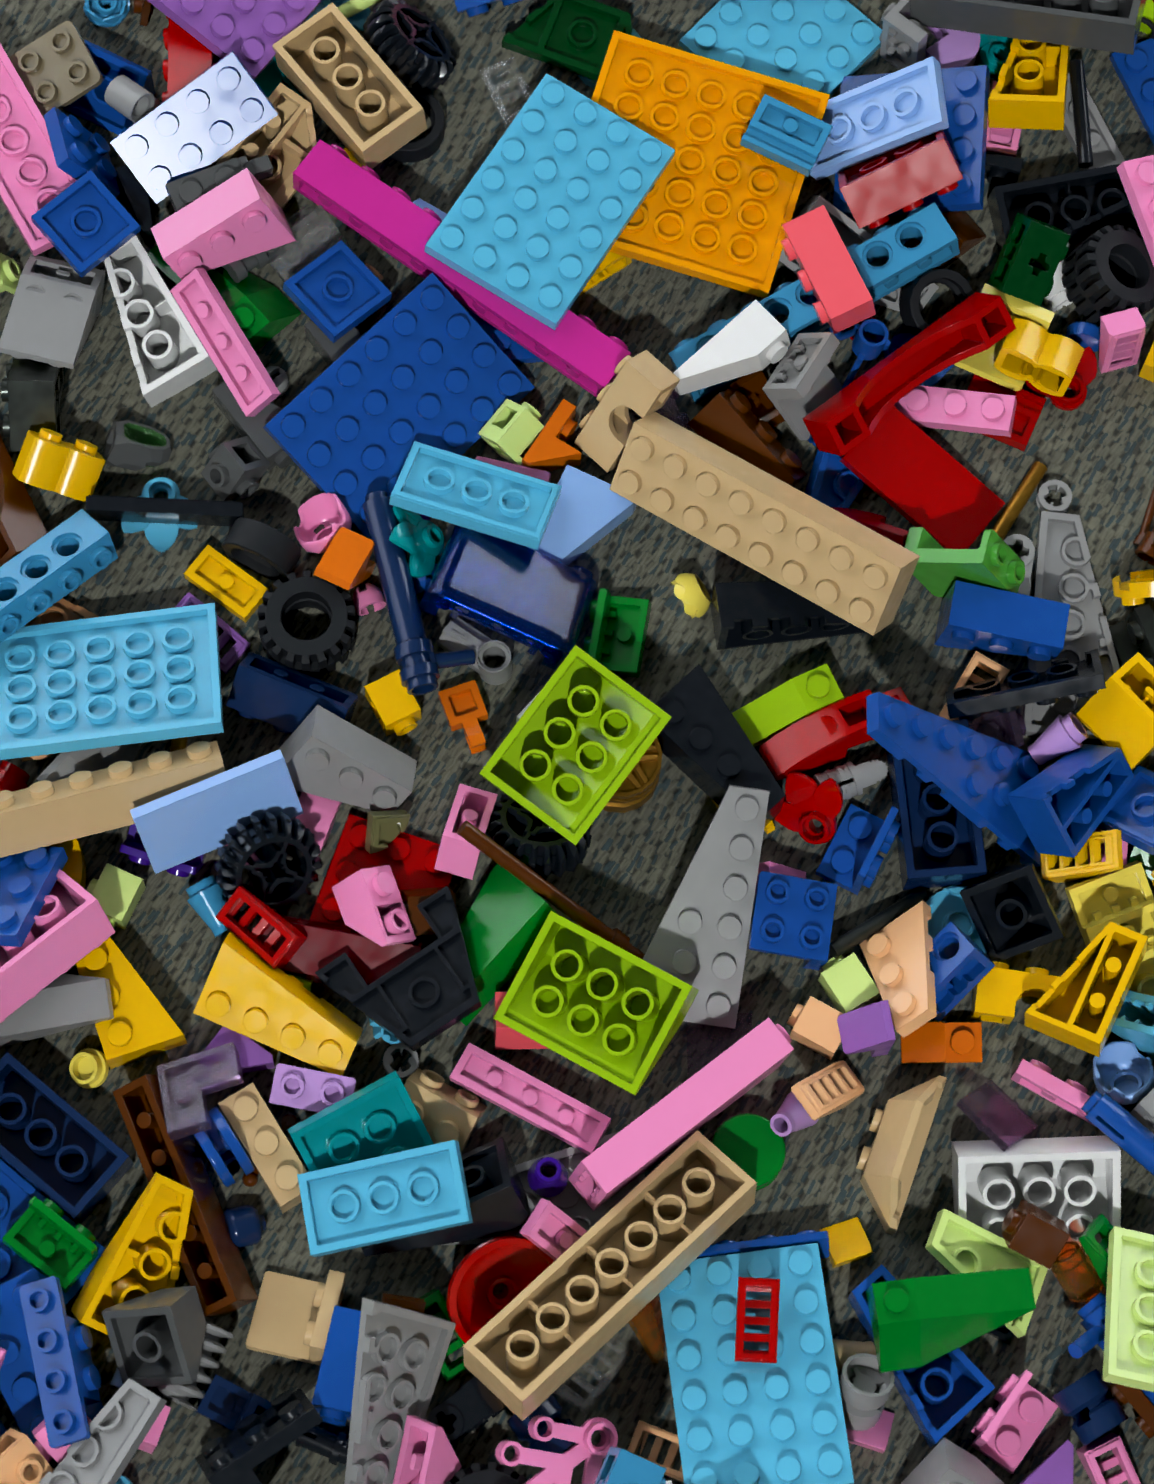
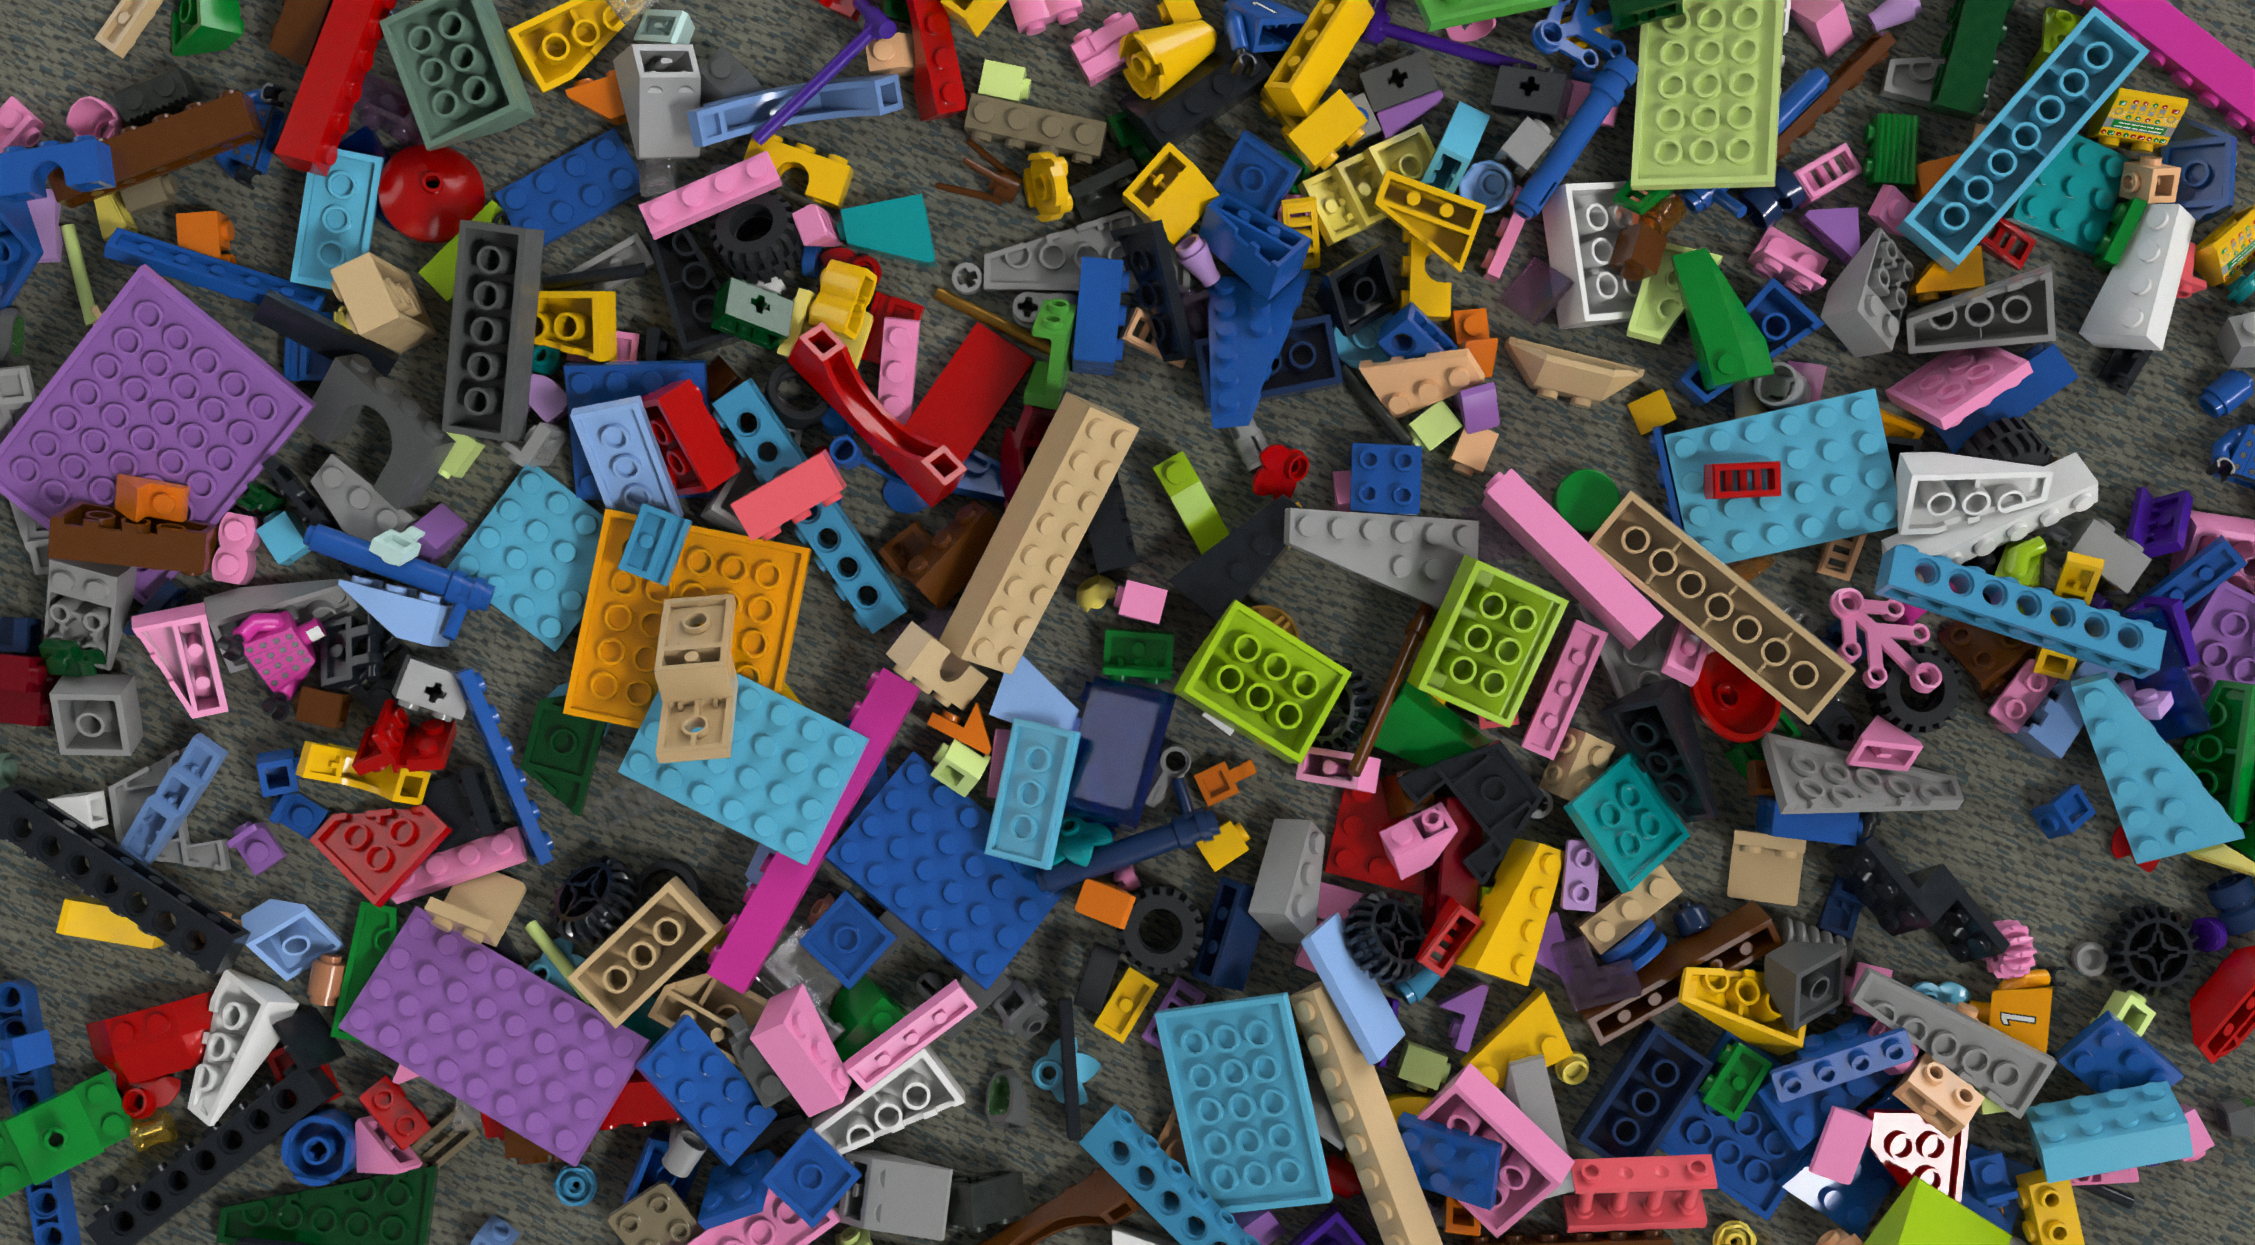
camera: 90 degrees left, 15 degrees up
(59, 465) = (1038, 1168): yellow brick -> none
(176, 956) = (1469, 1004): none -> medium lavender slope
(323, 510) = (1064, 912): bright pink hair -> none
(384, 828) = (1339, 840): olive tile -> none
(384, 1198) = (1677, 803): medium azure plate -> none
(547, 1186) = (1622, 668): dark purple cone -> none
(640, 149) = (696, 678): none -> tan bracket
(676, 637) = (1140, 602): none -> bright pink brick
(737, 350) = (868, 567): white slope -> none
(790, 1117) = (1550, 462): lavender cone -> none
(803, 379) = (890, 509): light grey bracket -> none
(821, 735) = (1208, 454): red slope -> none
(828, 1090) = (1528, 434): light nougat slope -> none
(854, 850) = (1311, 426): blue bracket -> none
(1114, 422) = (890, 229): none -> teal slope

